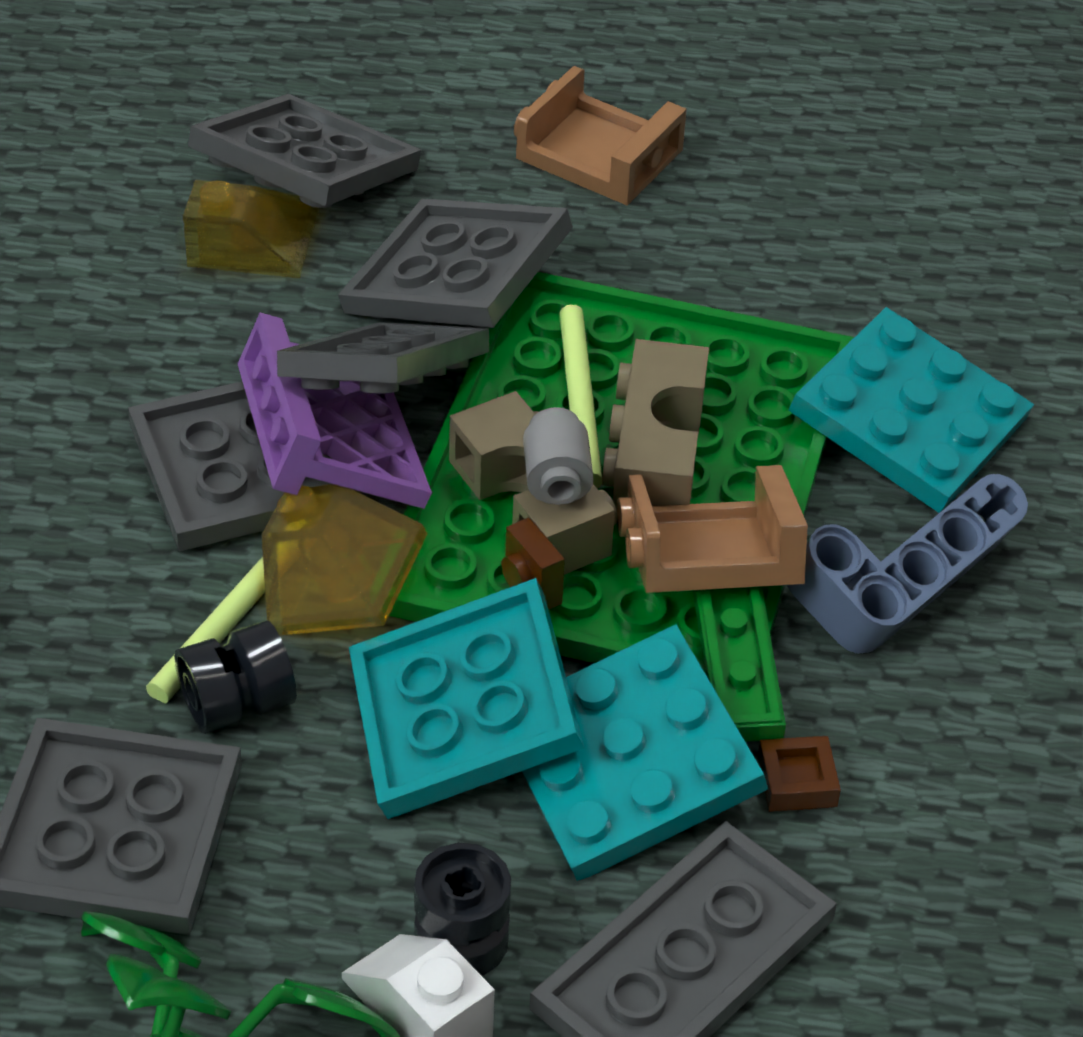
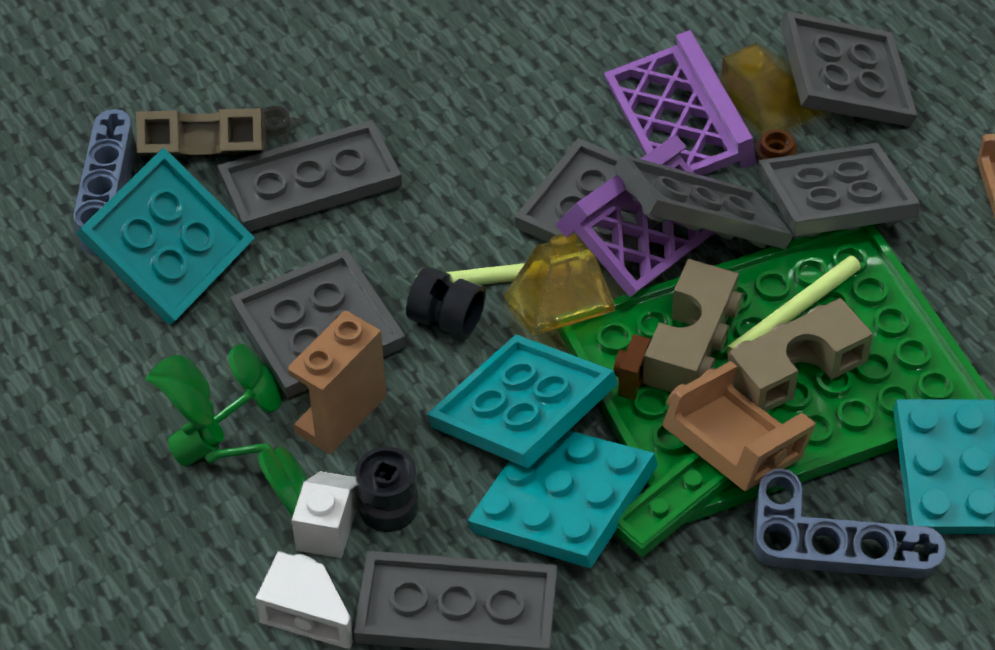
camera: 55 degrees right, 5 degrees up
(206, 274) = (706, 91): none -> medium lavender fence
(269, 847) = (343, 380): none -> medium nougat panel
(329, 272) = (775, 144): none -> reddish brown plate
(557, 457) = (692, 318): light grey brick -> none
(799, 773) = (629, 580): reddish brown plate -> none

